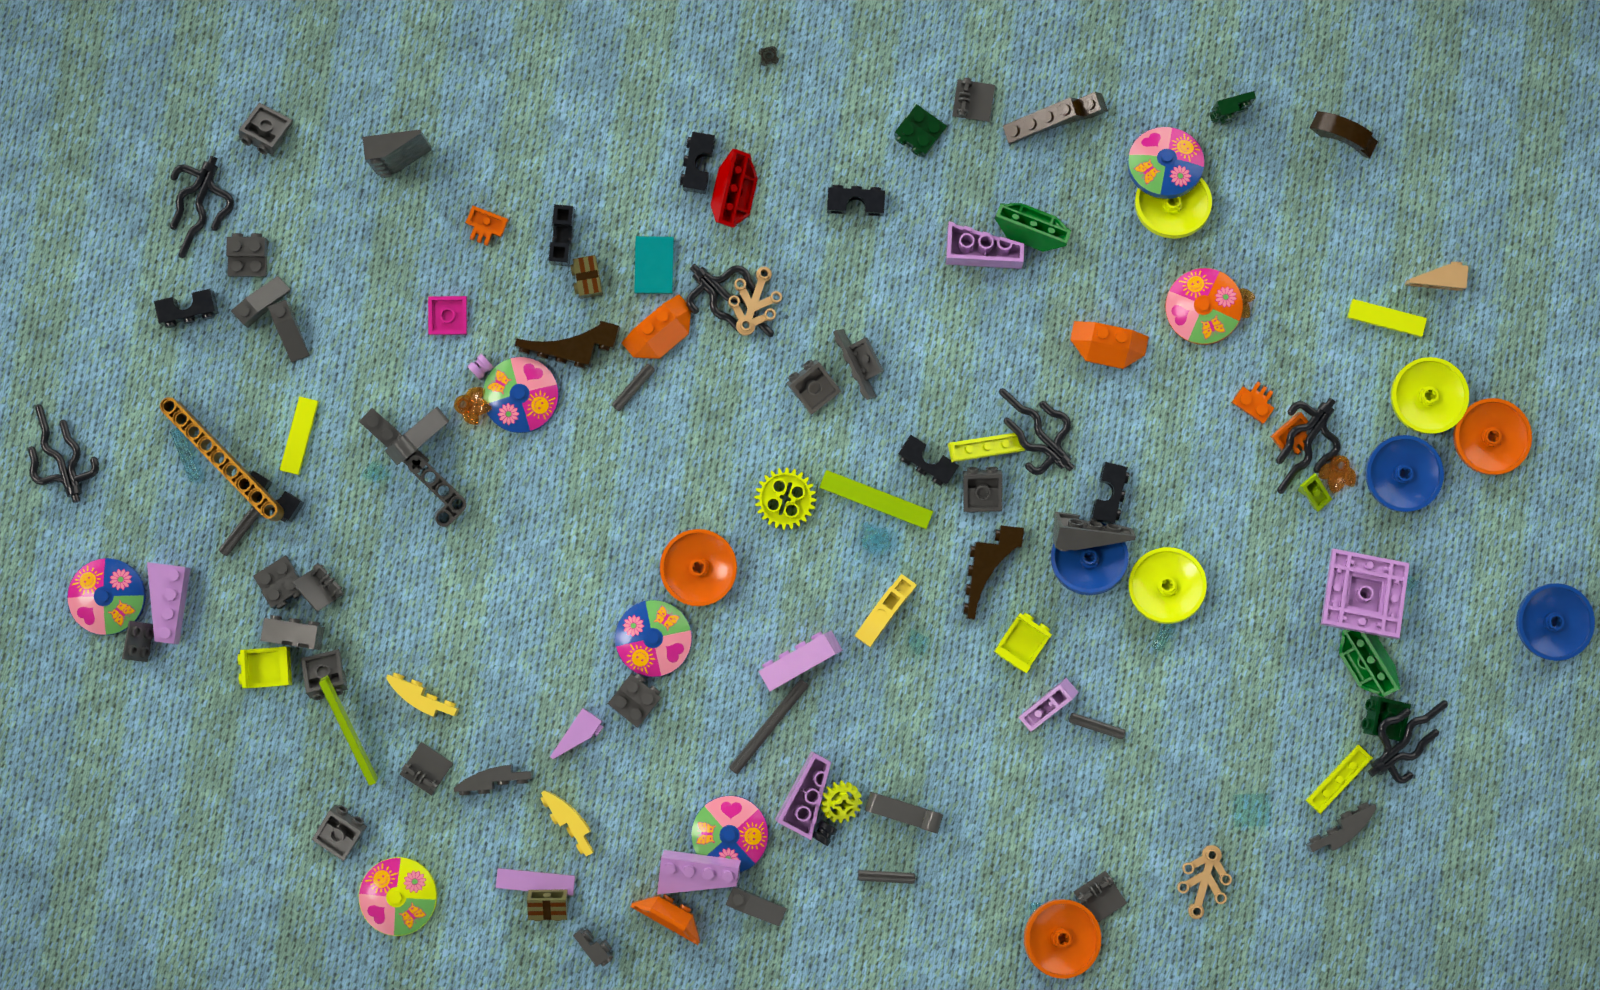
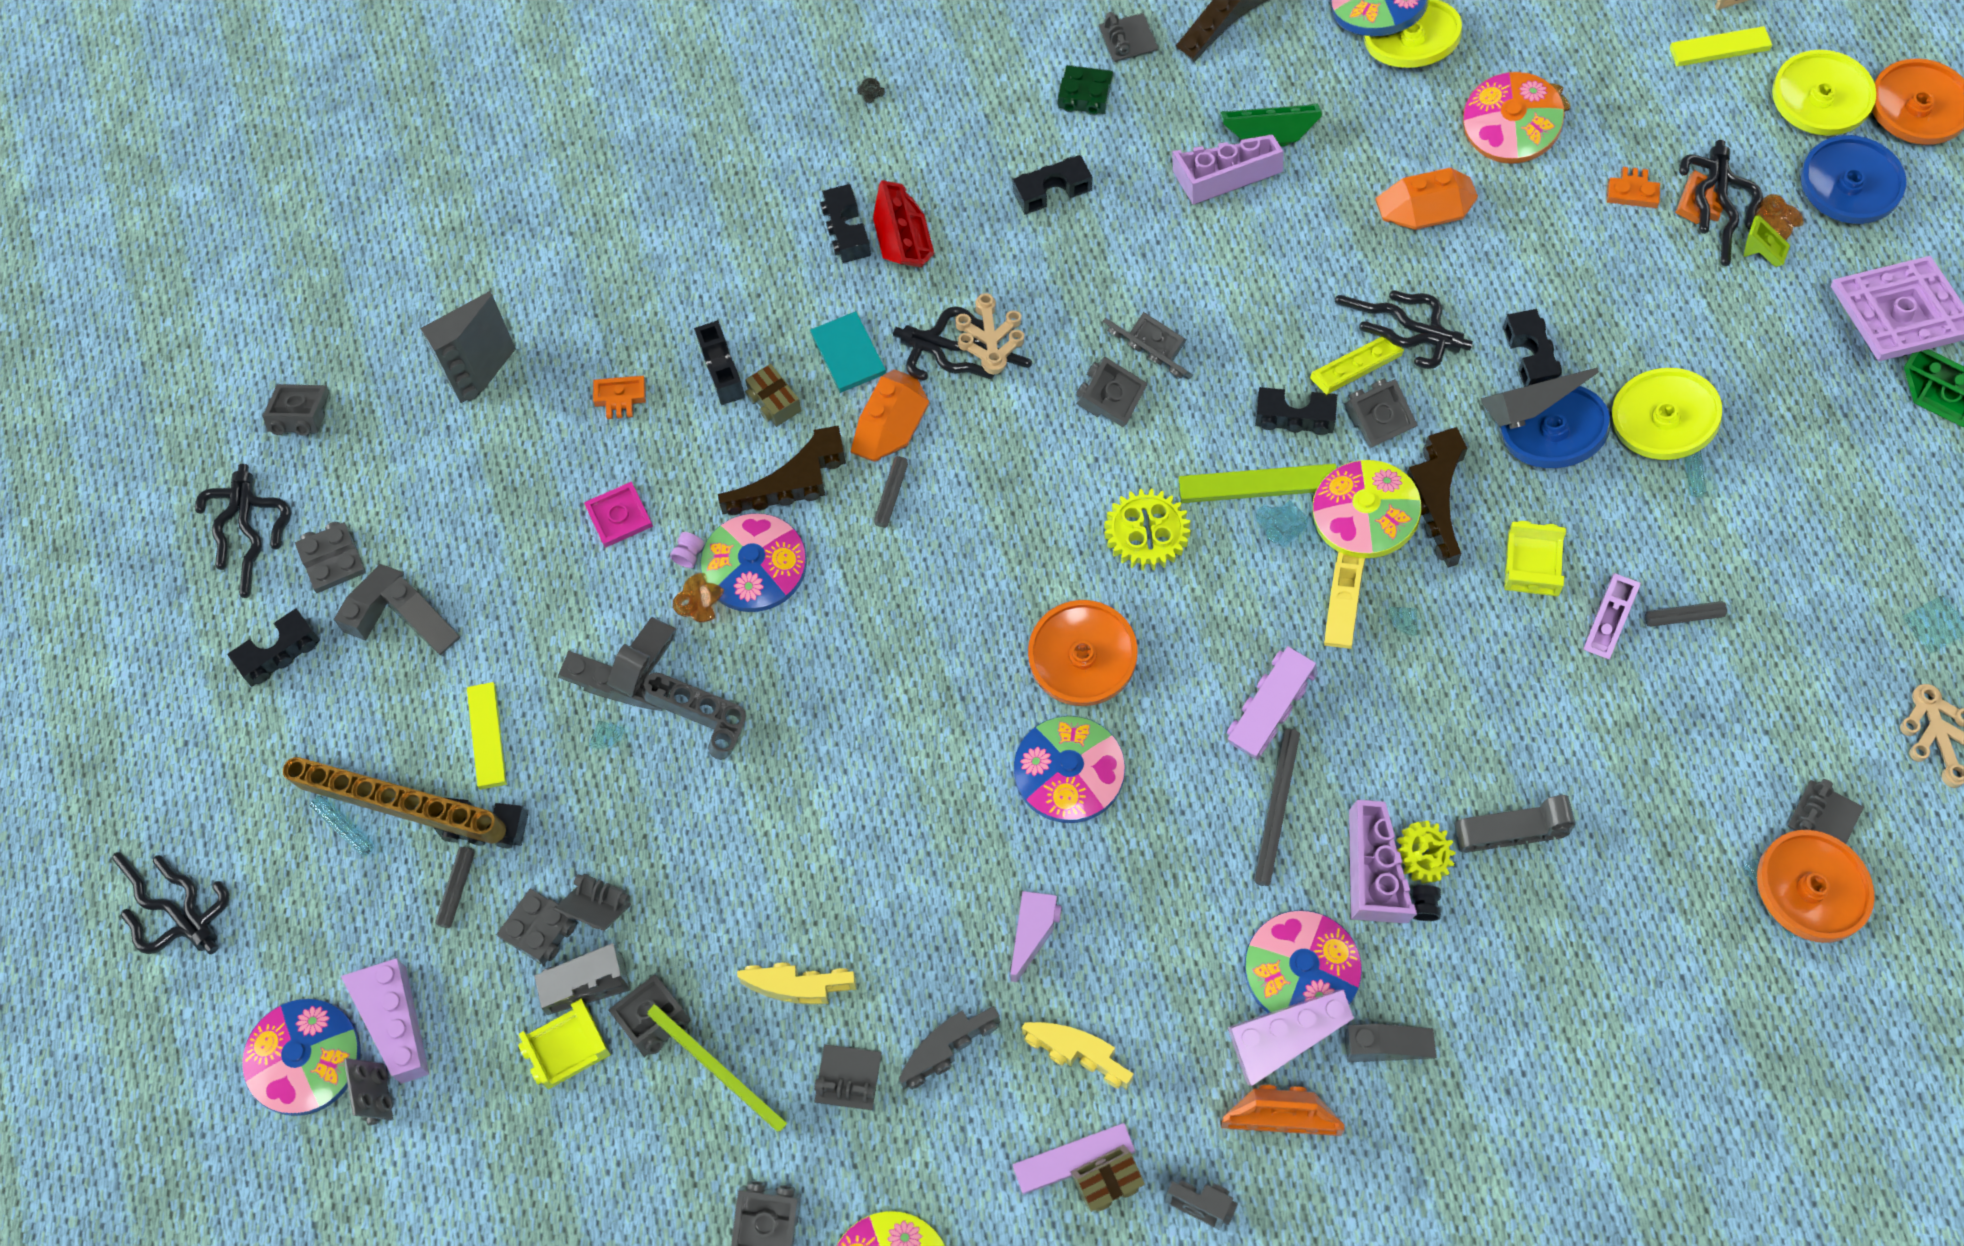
camera: 20 degrees left, 20 degrees down
(635, 699) = (1085, 853): dark grey plate -> none
(883, 876) = (1539, 922): dark grey axle -> none
(932, 556) = (1366, 509): none -> dish

